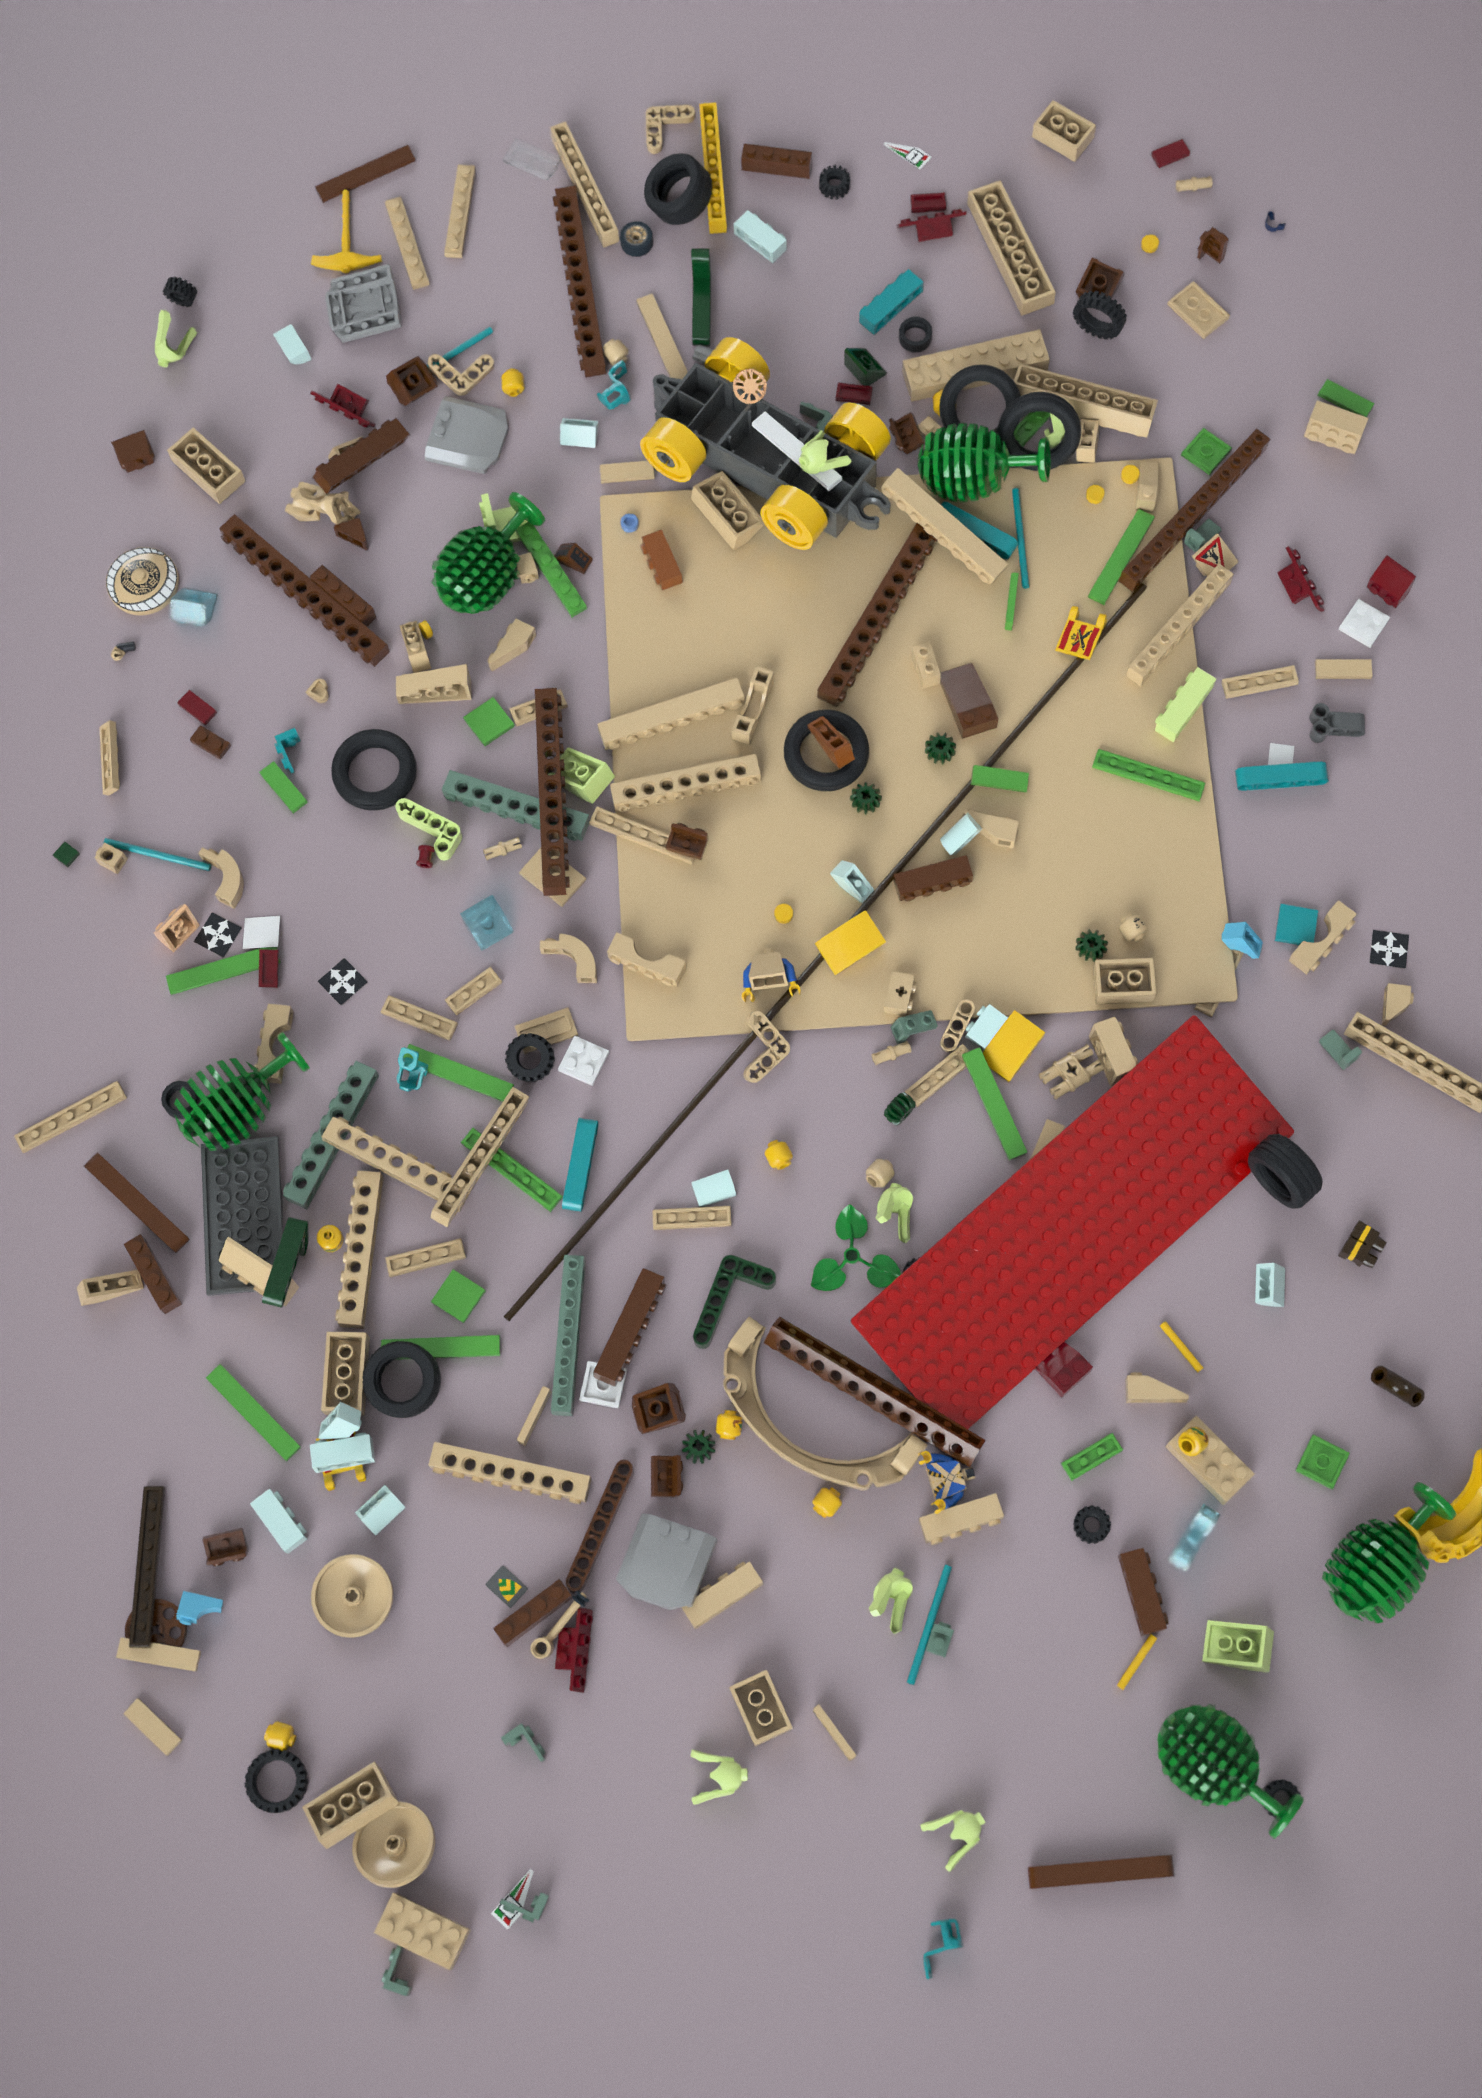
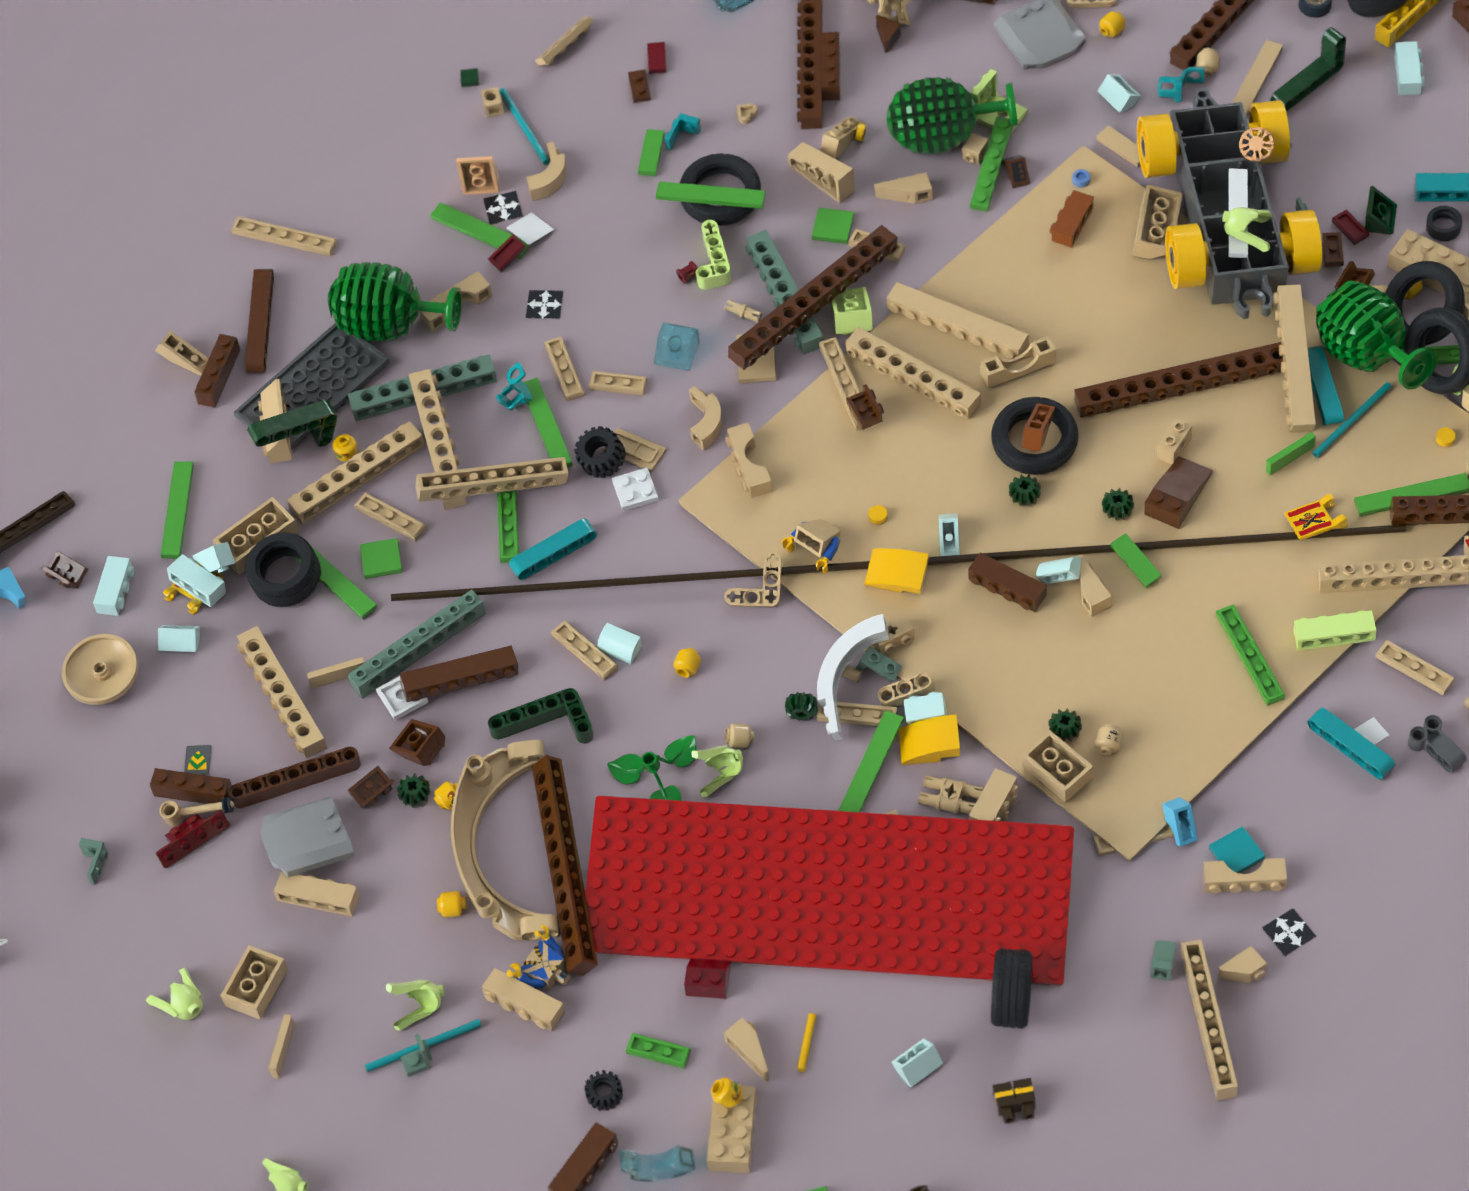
camera: 50 degrees right, 15 degrees down
(379, 781) = (710, 195): none -> bright green tile
(888, 1024) = (839, 656): none -> white arch

